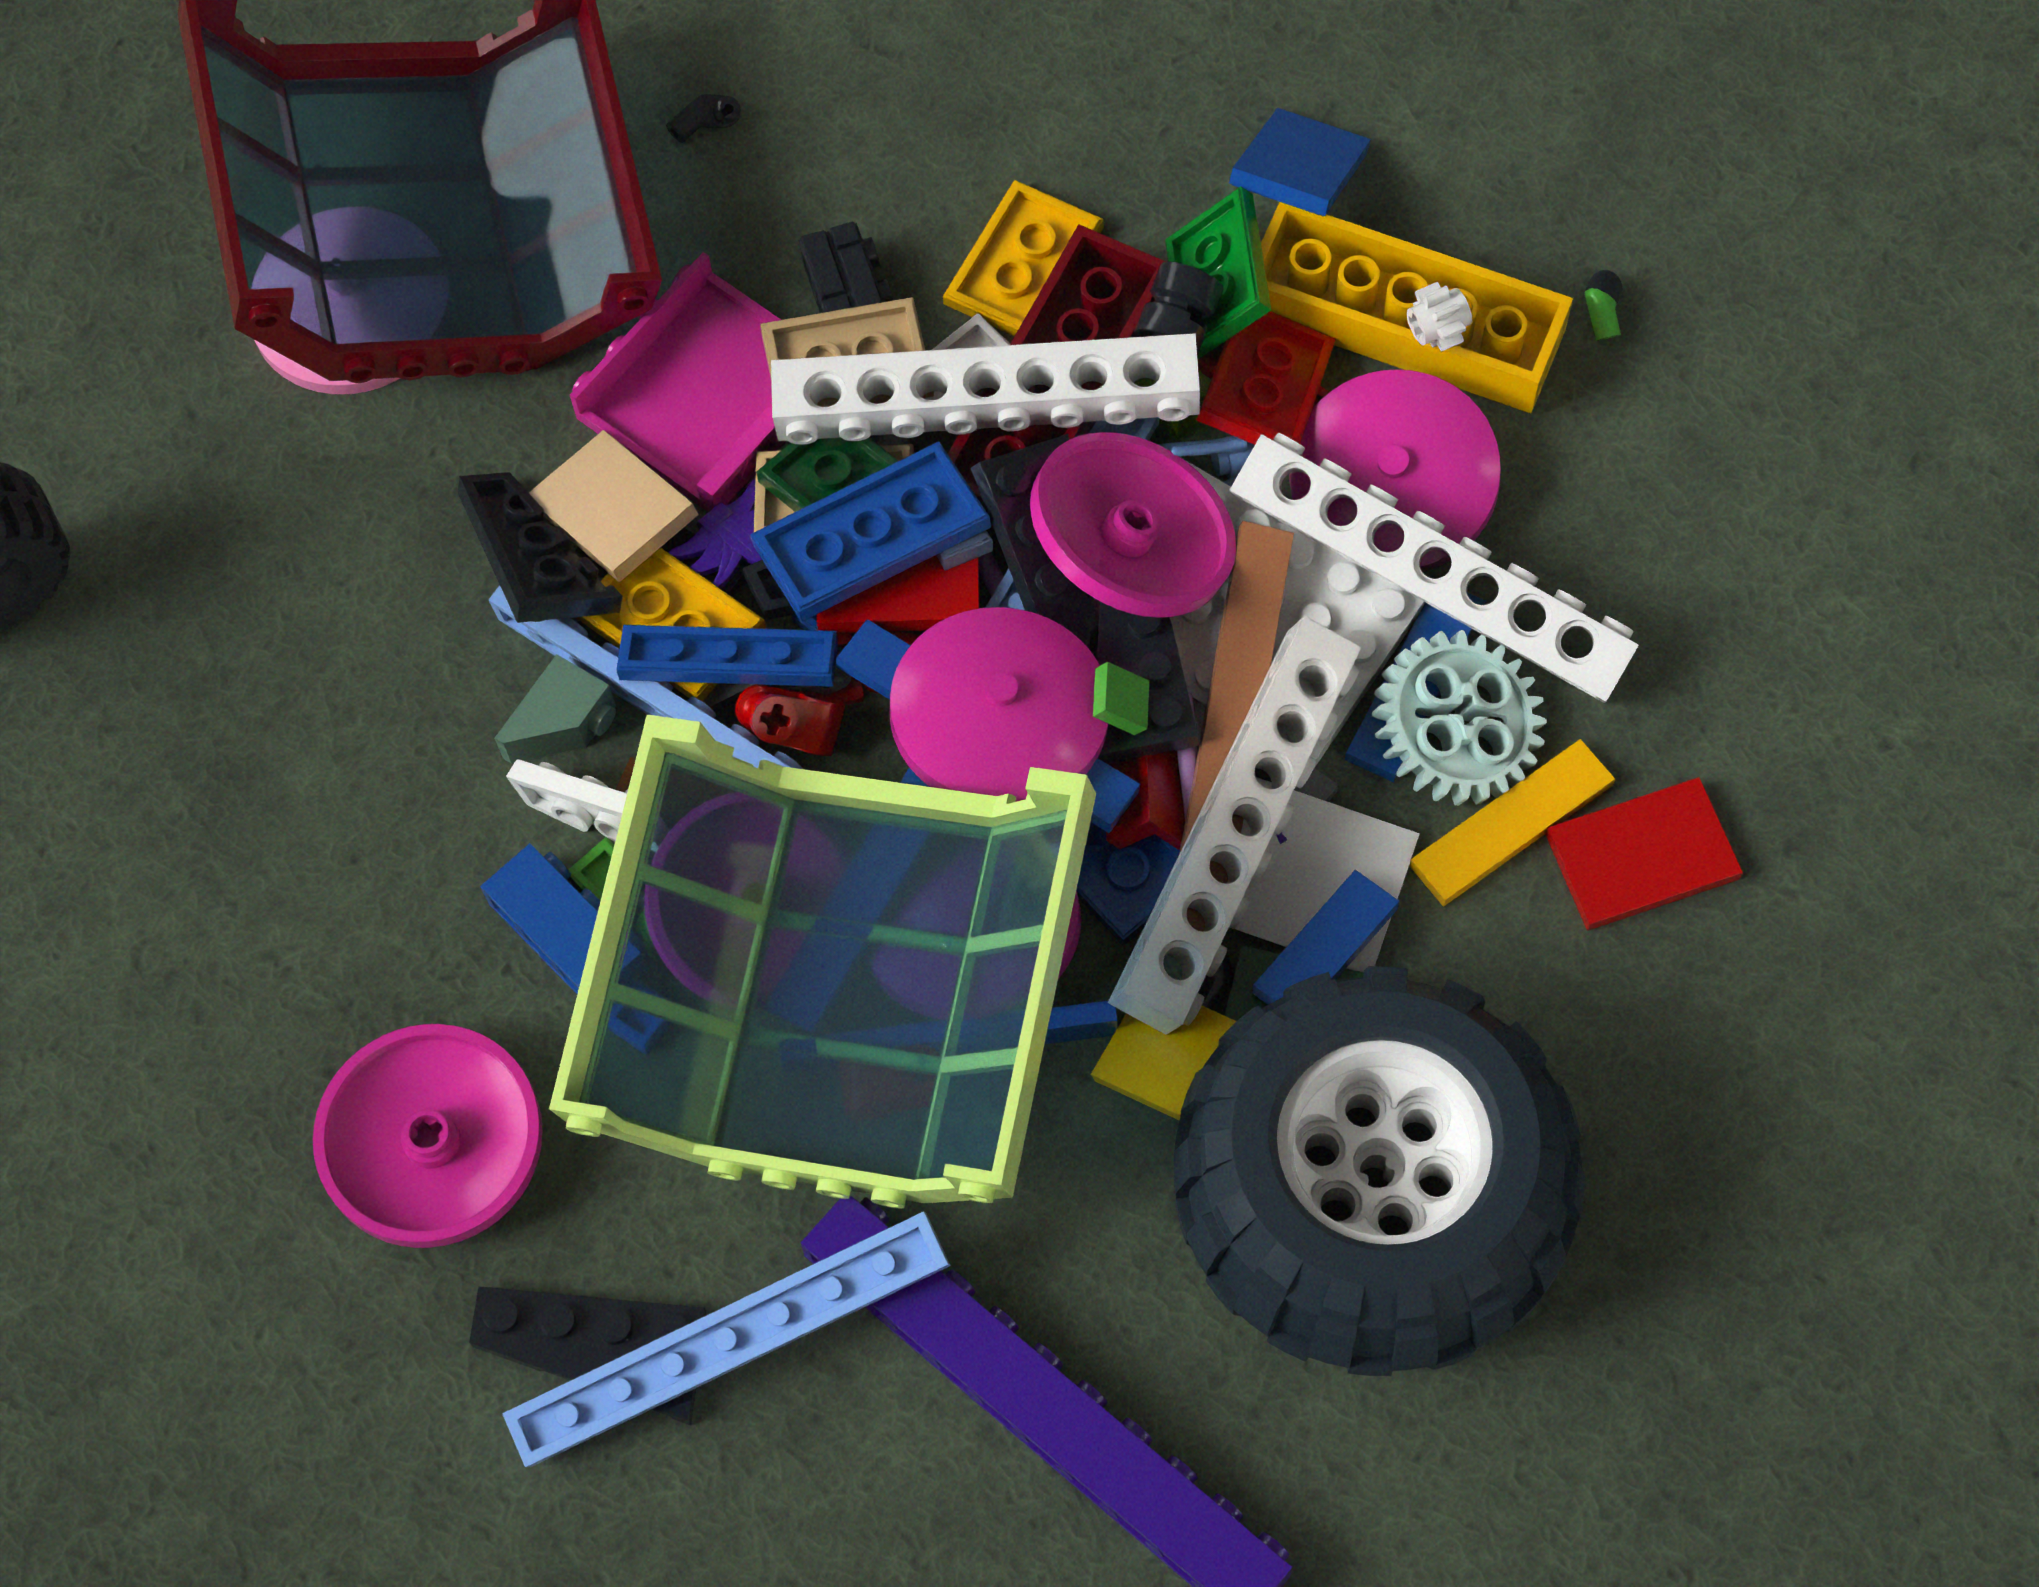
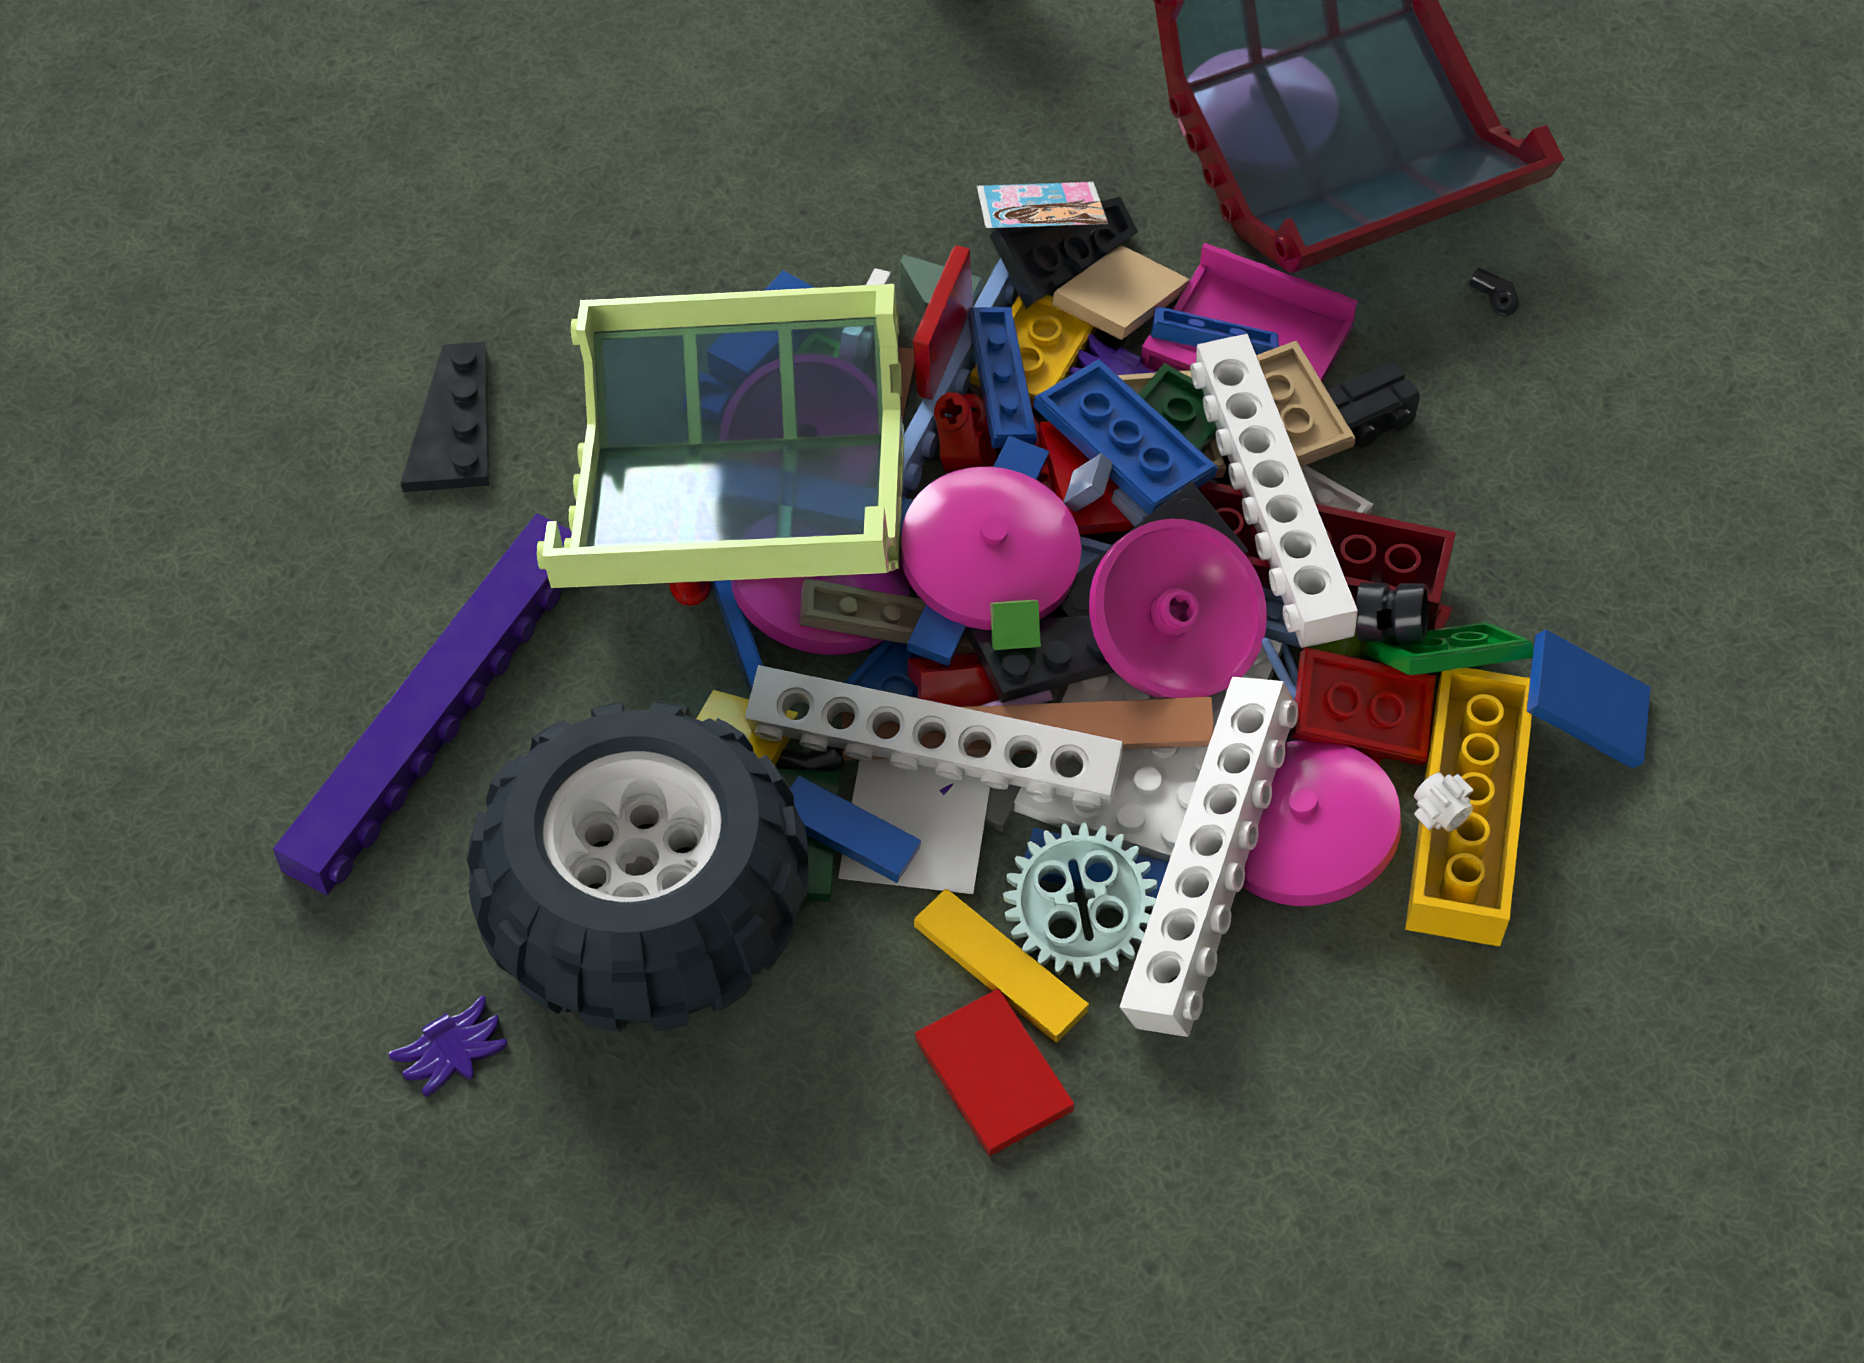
camera: 75 degrees right, 10 degrees down
(427, 1135) = (576, 262): dark pink dish -> none
(462, 563) = (1041, 205): none -> sticker
(646, 689) = (943, 322): none -> red tile
(708, 416) = (1196, 329): none -> blue tile
(726, 1339) = (454, 481): light blue plate -> none
(935, 581) = (1088, 482): none -> sand blue tile
(1015, 256) = (1476, 523): yellow tile -> none
(1526, 1445) = (450, 1047): none -> dark purple piece
(1601, 299) = (1534, 966): bright green arm -> none

